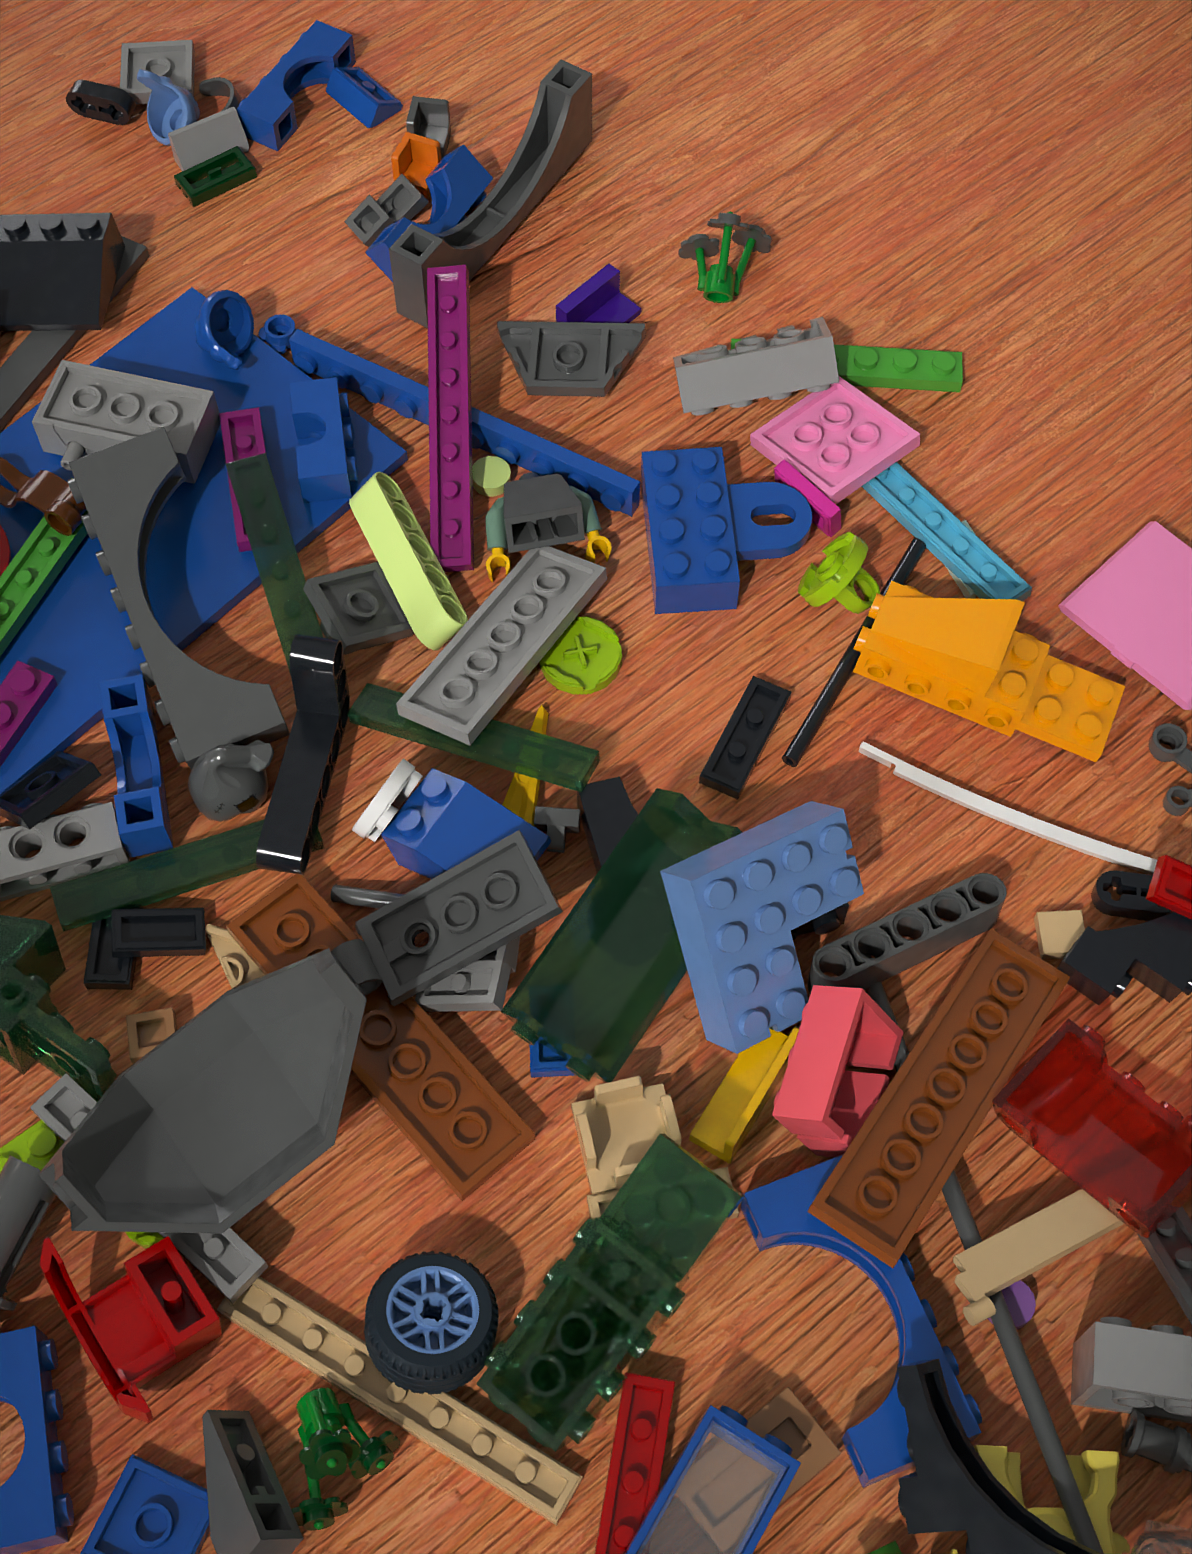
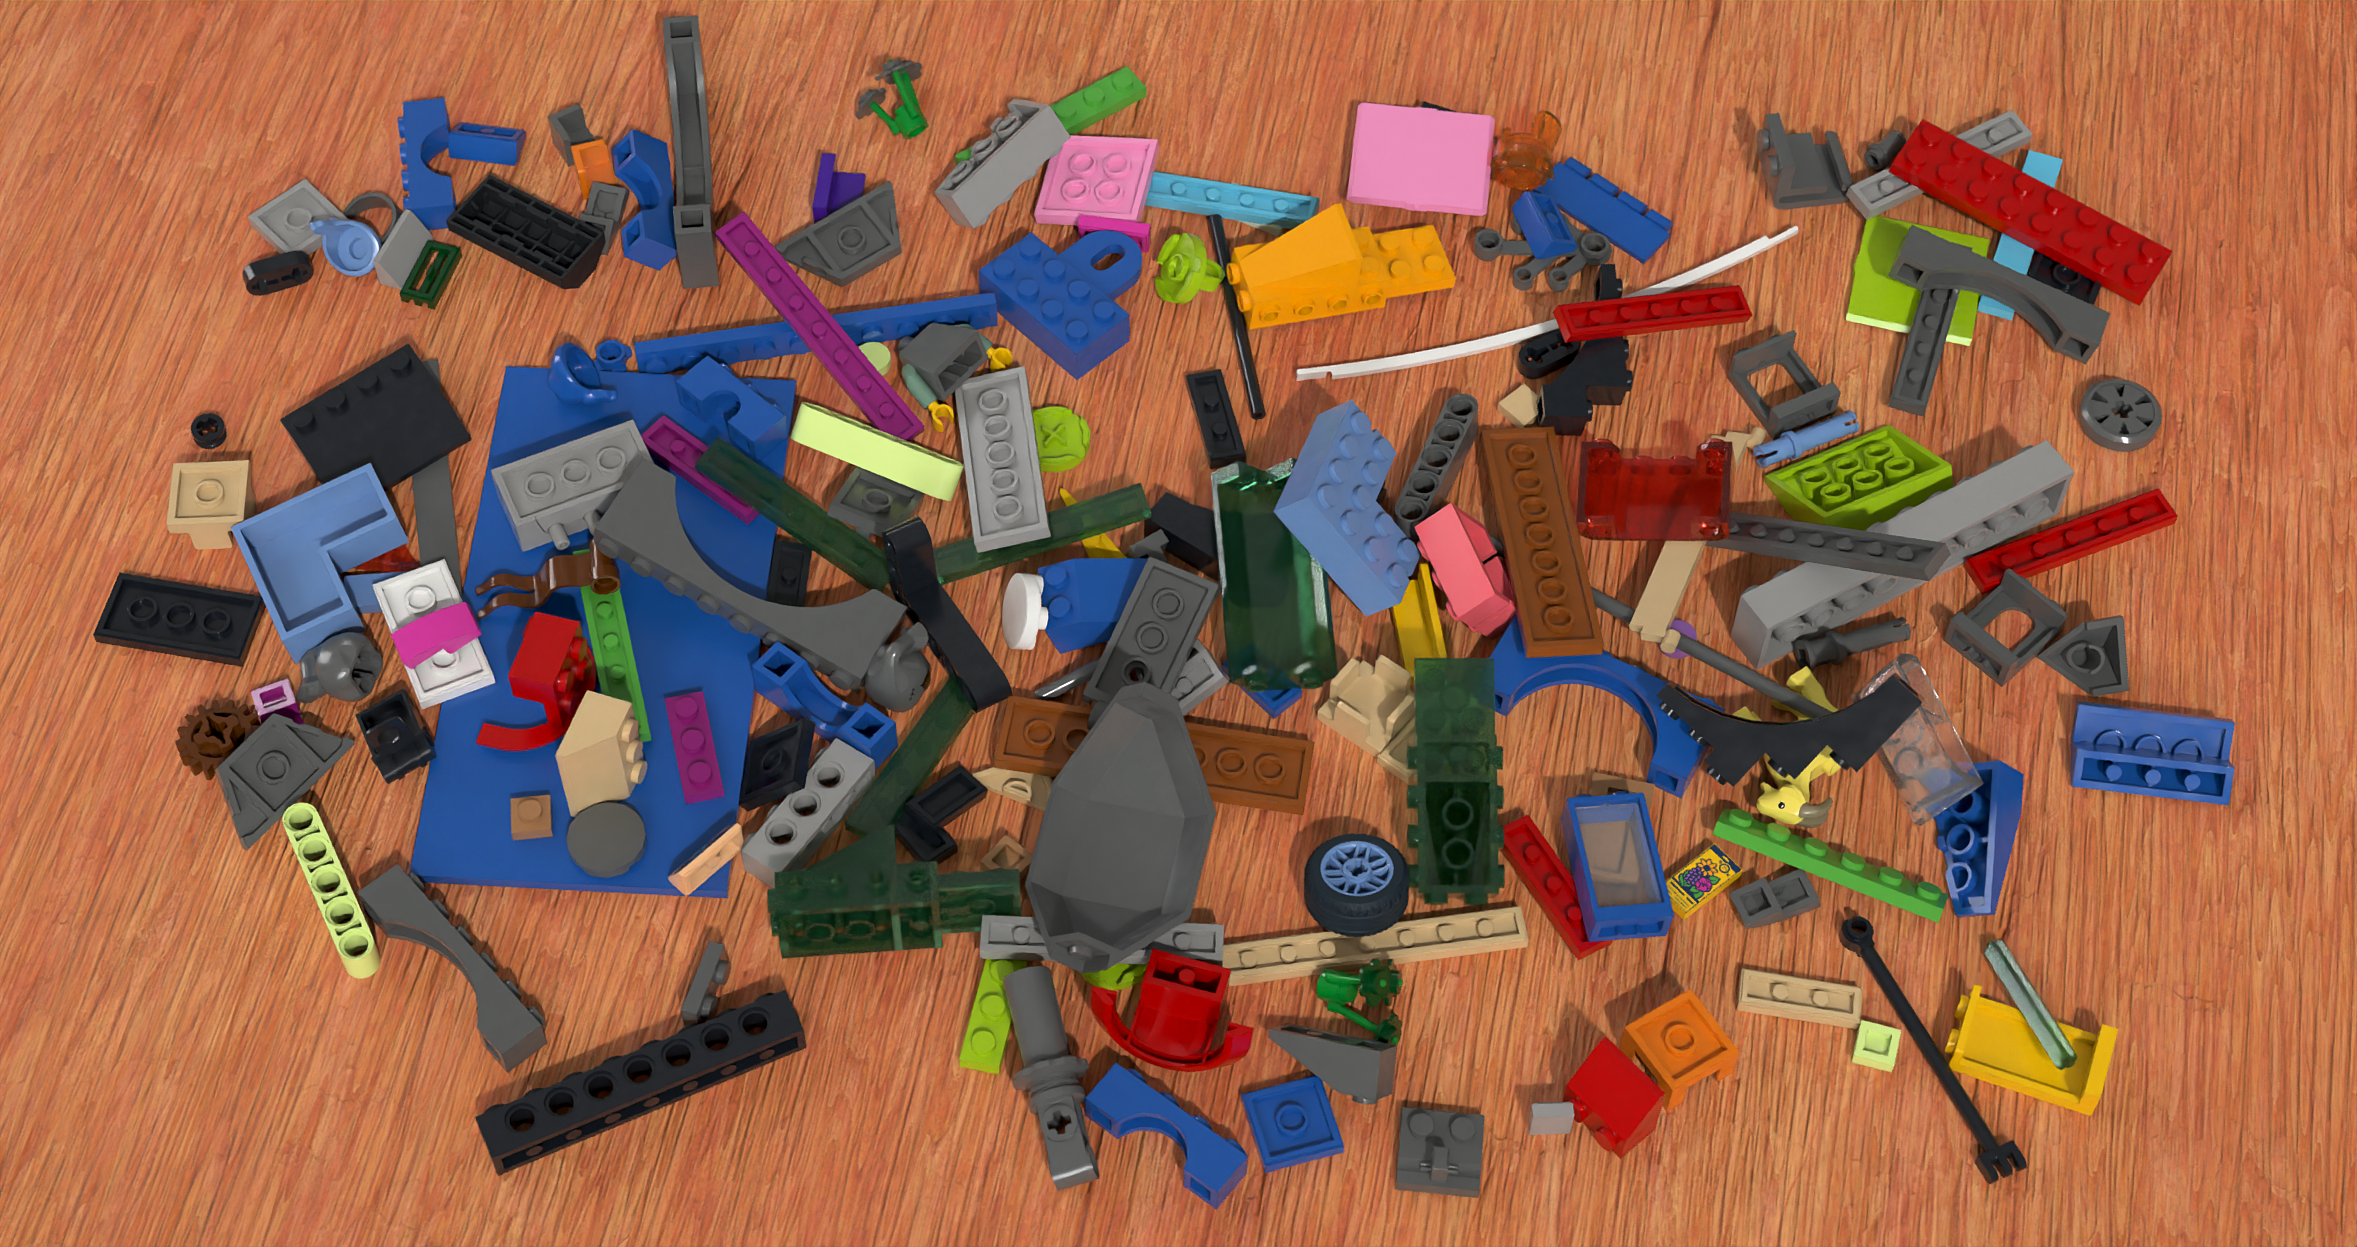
camera: 40 degrees left, 5 degrees down
(225, 627) = (789, 574): none -> black plate
(312, 188) = (529, 233): none -> black piece

